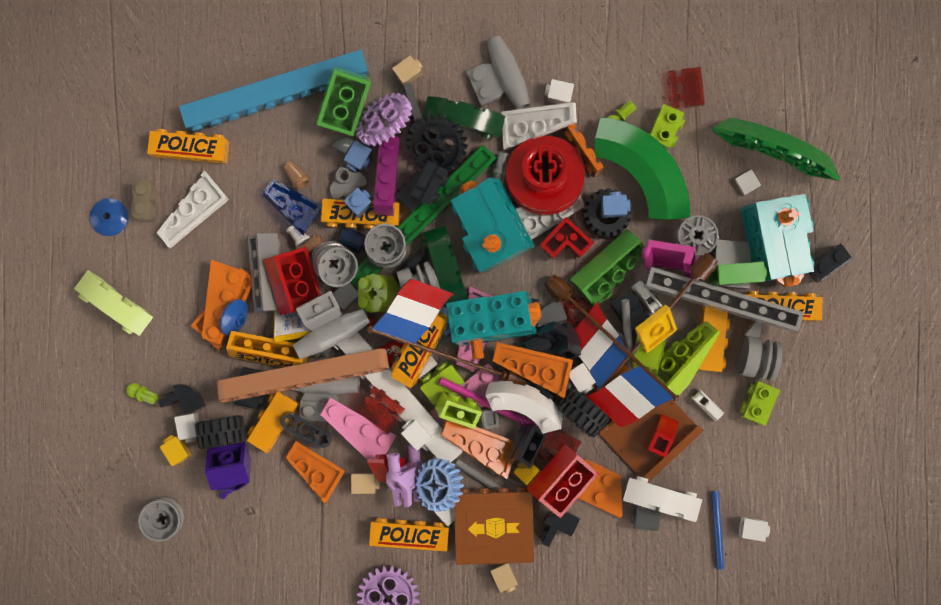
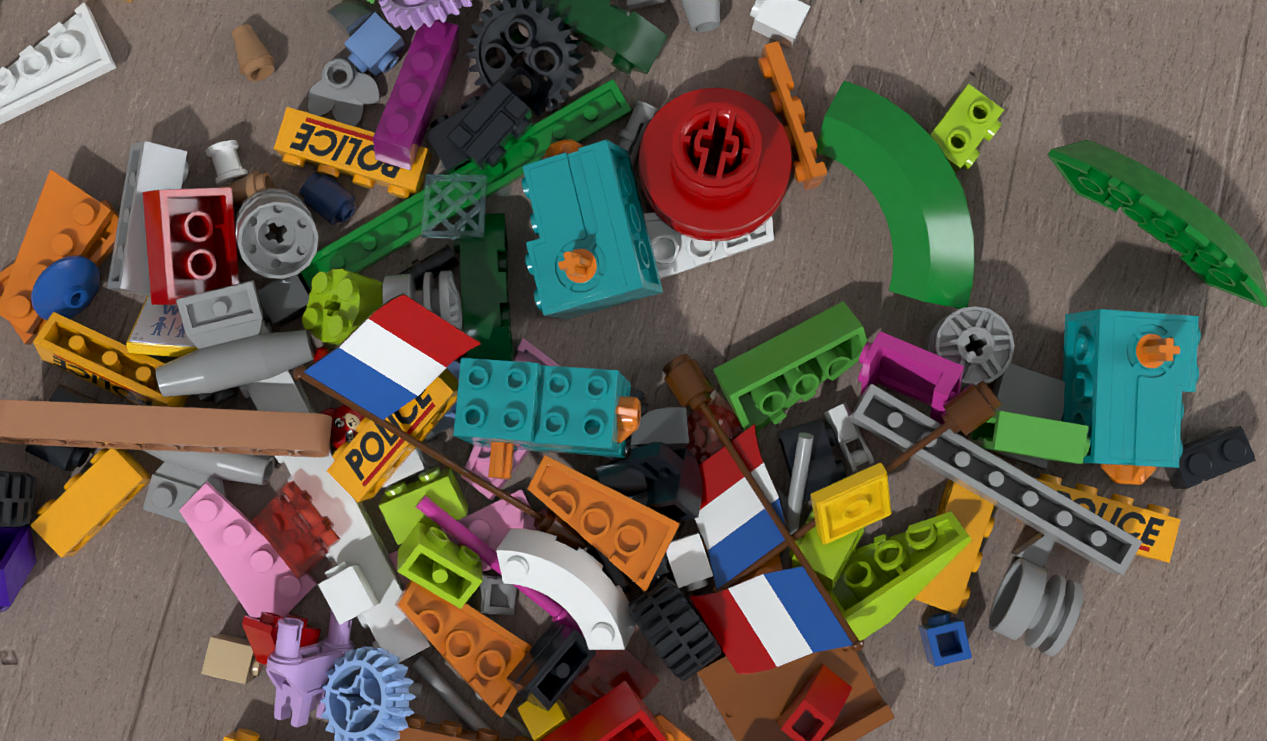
camera: 10 degrees right, 0 degrees up
(291, 428) = (119, 521): black beam -> none
(292, 205) = (229, 106): clear blue wing -> none
(316, 470) = (152, 613): orange wing -> none
(359, 202) = (349, 128): medium blue brick -> none
(385, 235) = (360, 215): light grey wheel -> none
(417, 216) = (452, 231): none -> clear light blue window
(535, 122) = (721, 60): white wing -> none
(566, 235) = (724, 285): red brick -> none
(597, 227) = (834, 241): black tyre -> none
(615, 205) = (831, 250): medium blue brick -> none
(624, 111) = (891, 82): lime axle -> none
(692, 88) = (1029, 66): clear red plate -> none
(709, 407) = (915, 673): white bar -> none
(719, 386) = (944, 640): none -> blue brick
(747, 182) = (1089, 269): white tile -> none
(759, 402) = (1013, 689): lime brick -> none

